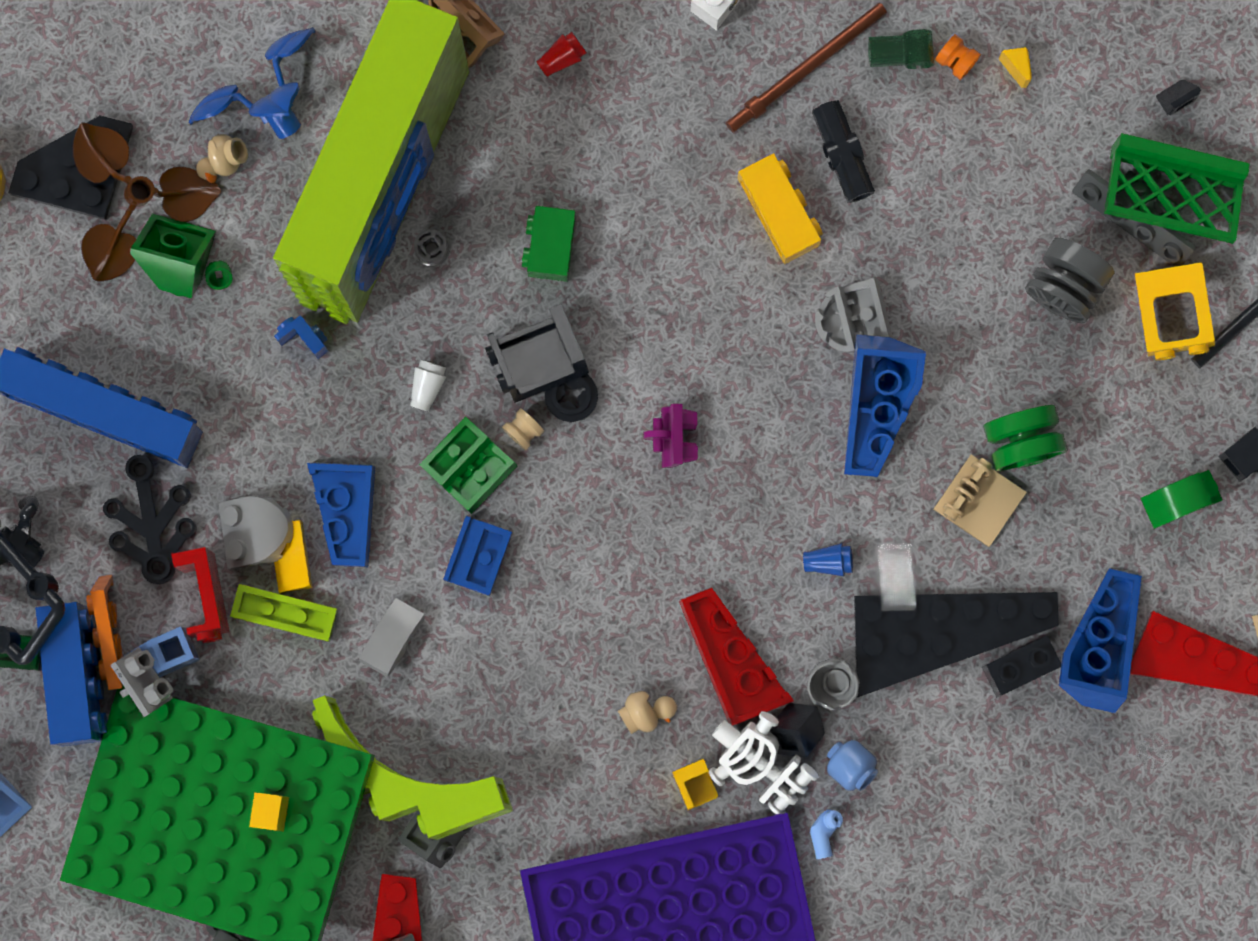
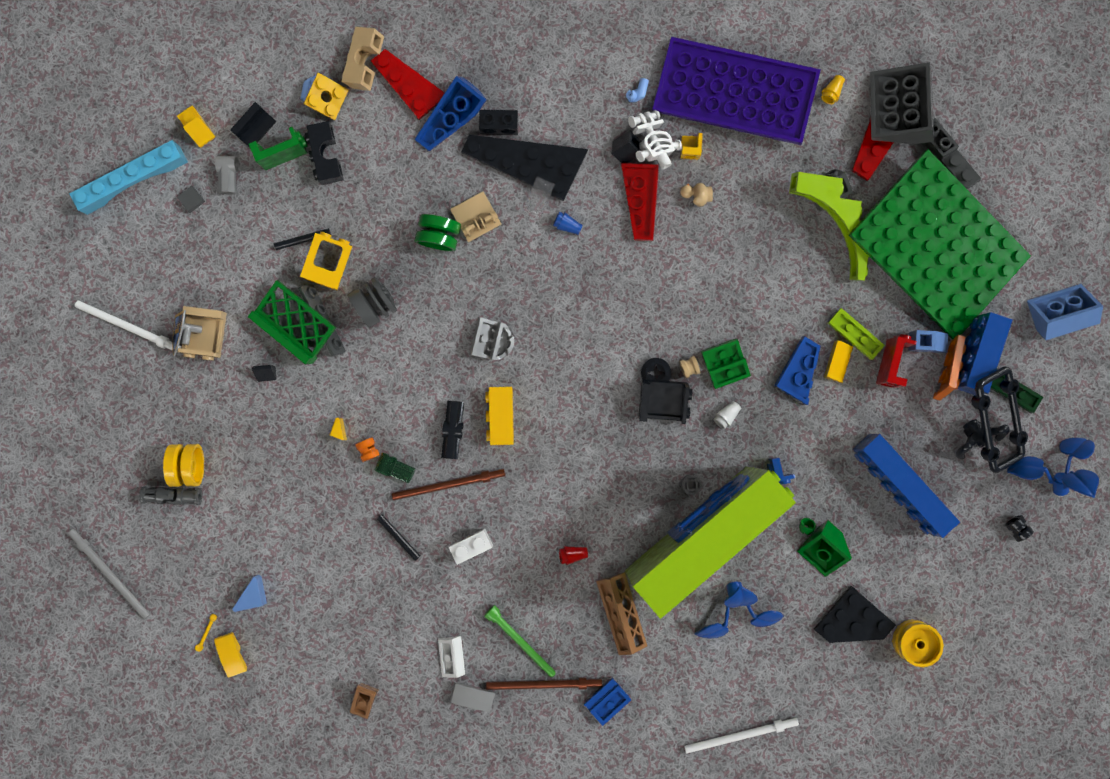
camera: 155 degrees left, 5 degrees up
(103, 152) = (838, 620): reddish brown plant -> none
(142, 681) = (949, 330): light grey hips -> none
(150, 525) = (902, 412): black plant -> none
(223, 157) = (776, 587): tan animal -> none
(254, 530) = (851, 383): light grey slope -> none
(269, 811) = (916, 231): yellow slope -> none
(391, 636) = (807, 294): light grey slope -> none
(477, 556) = (744, 314): blue plate -> none
(550, 243) = (628, 456): green brick -> none
(668, 435) = (617, 326): magenta hips -> none
(840, 679) = (593, 157): light grey hair -> none
(851, 765) = (608, 116): medium blue head -> none
(882, 390) = (496, 294): blue wedge -> none
(1181, 498) = (374, 164): green brick -> none

